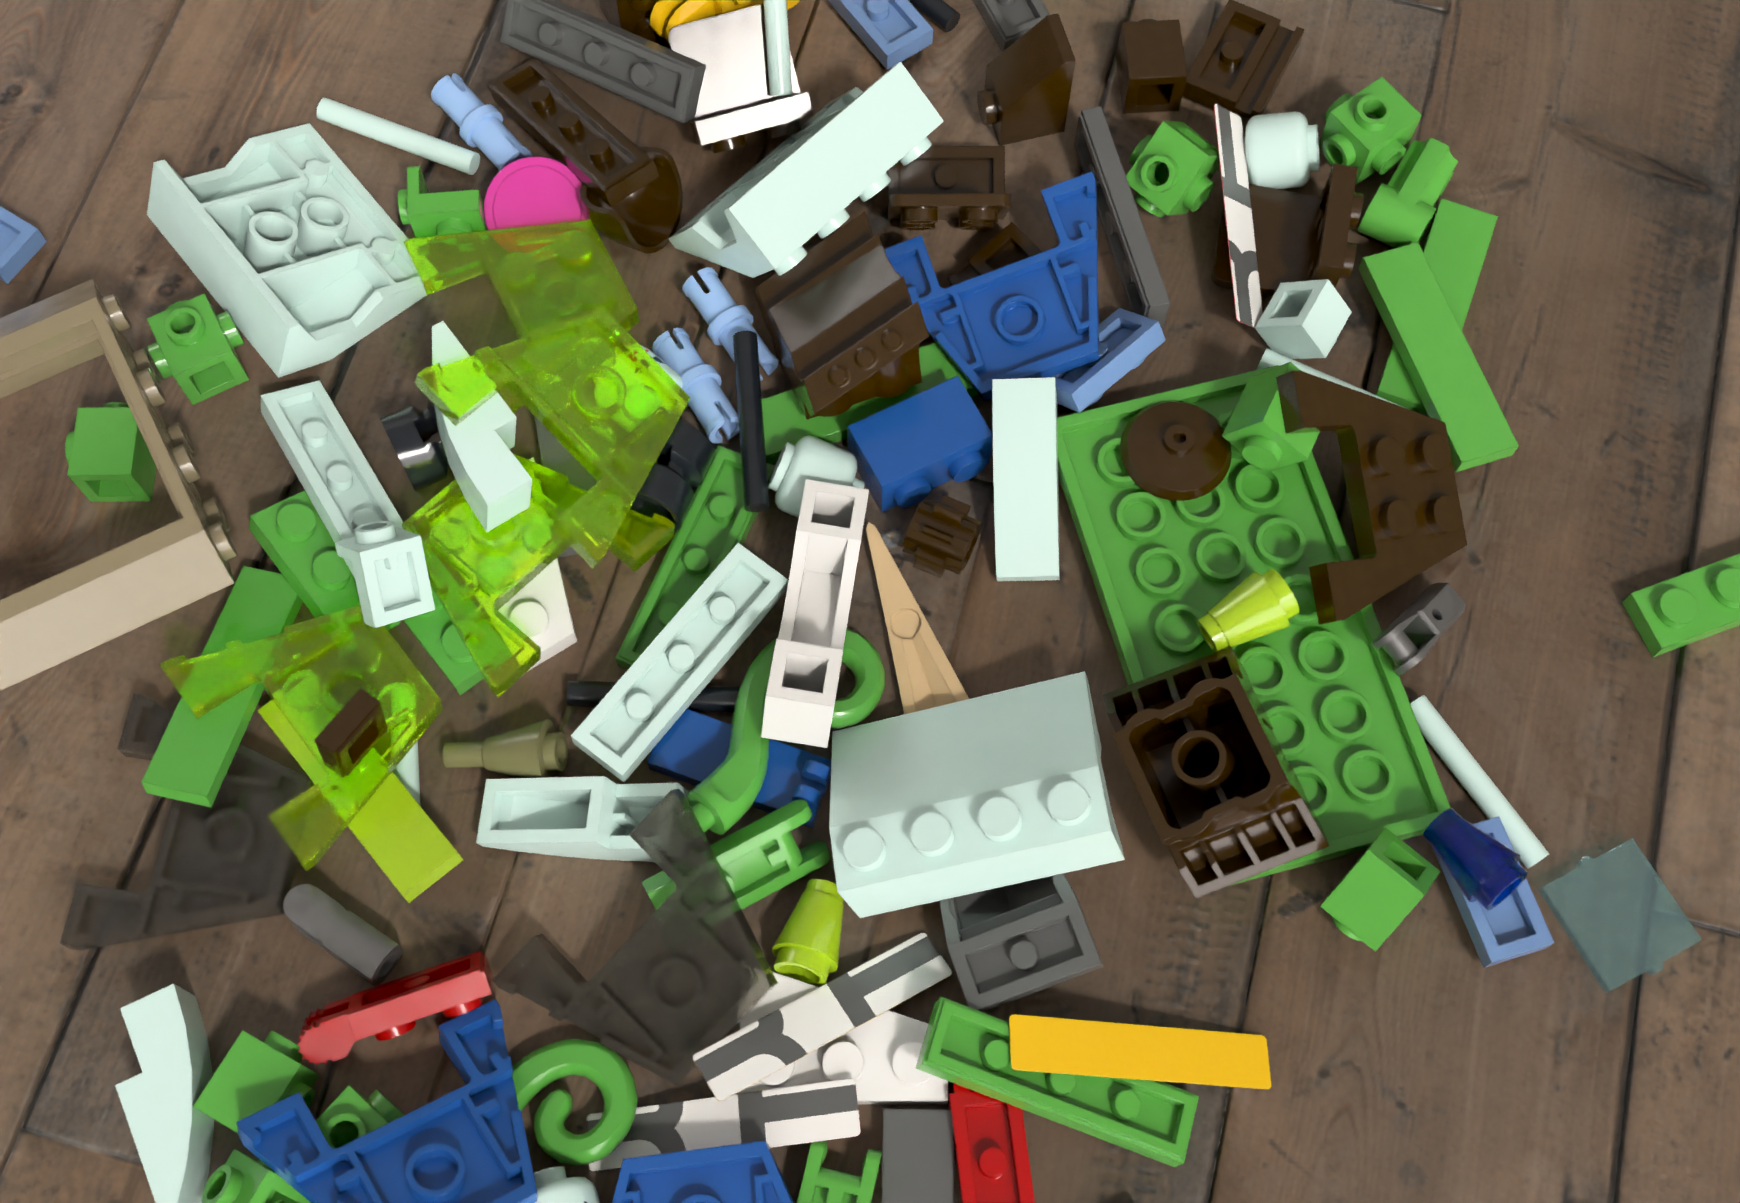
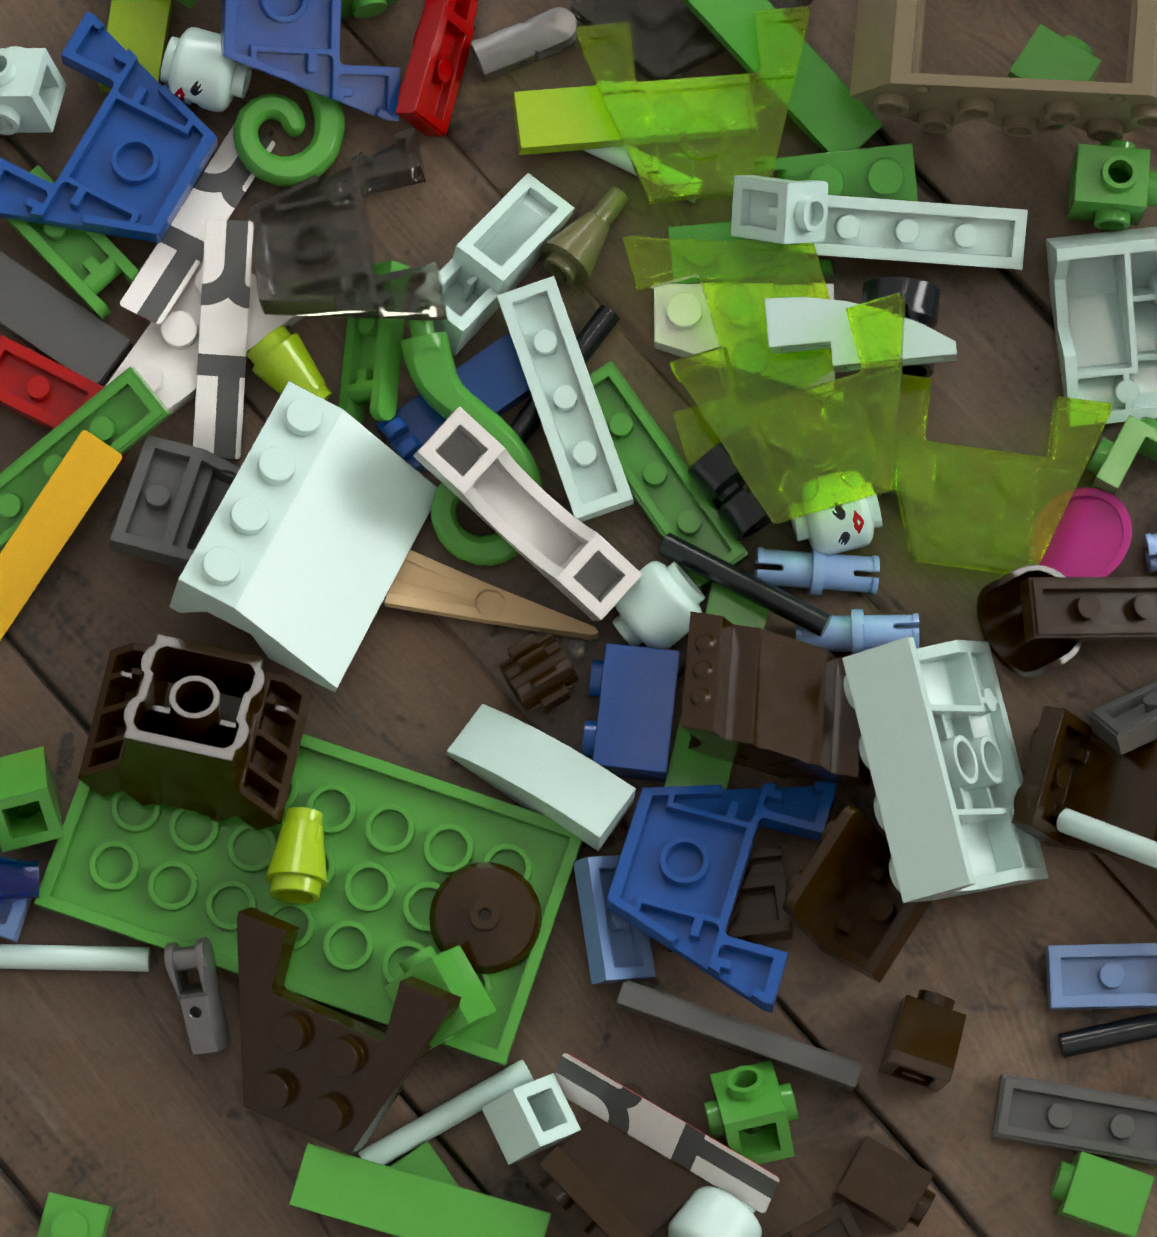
camera: 125 degrees right, 10 degrees up
(352, 733) = (647, 108): dark brown tile -> none

